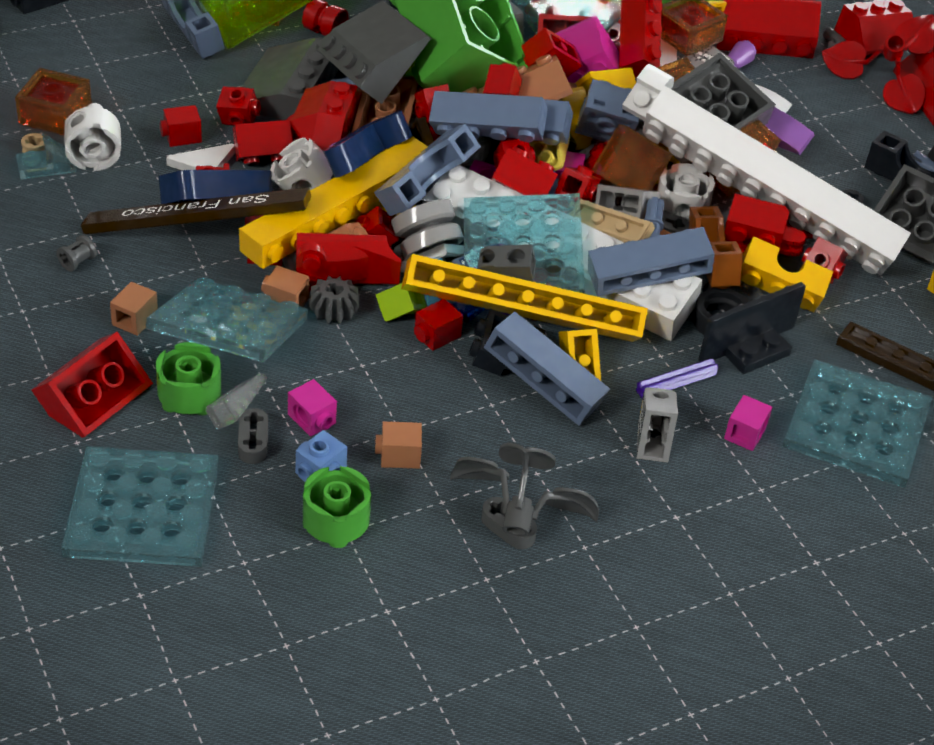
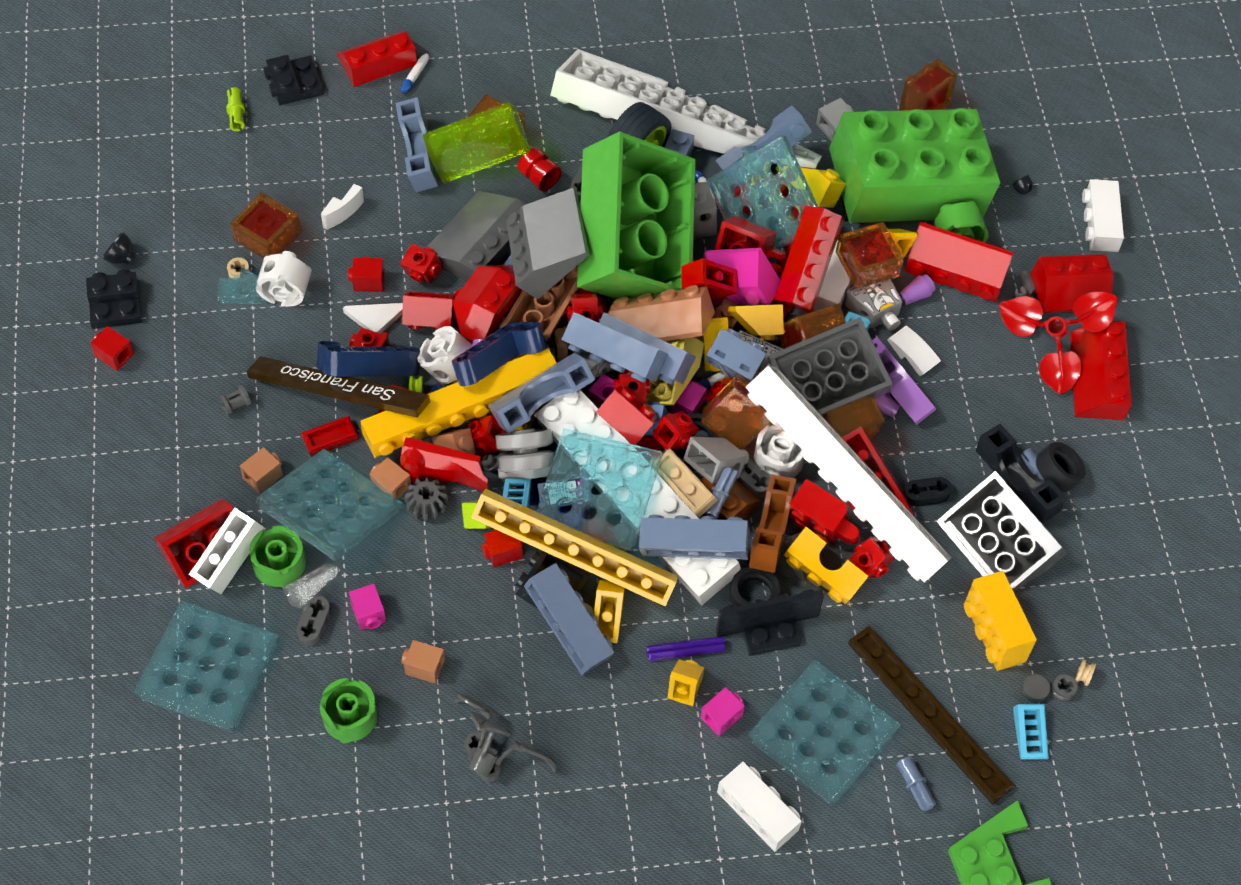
camera: 20 degrees right, 15 degrees up
(128, 380) = (226, 551): none -> white brick
(130, 79) = (340, 210): none -> white slope
(201, 265) = (329, 436): none -> red tile
(320, 453) = (352, 661): medium blue brick -> none
(503, 80) = (643, 311): red brick -> none
(509, 260) = (570, 511): dark grey leg -> none
(646, 90) = (768, 351): white brick -> none
(657, 412) = (643, 687): light grey torso -> none
(697, 404) = (685, 681): none -> yellow slope
(834, 499) = (759, 806): none -> white brick

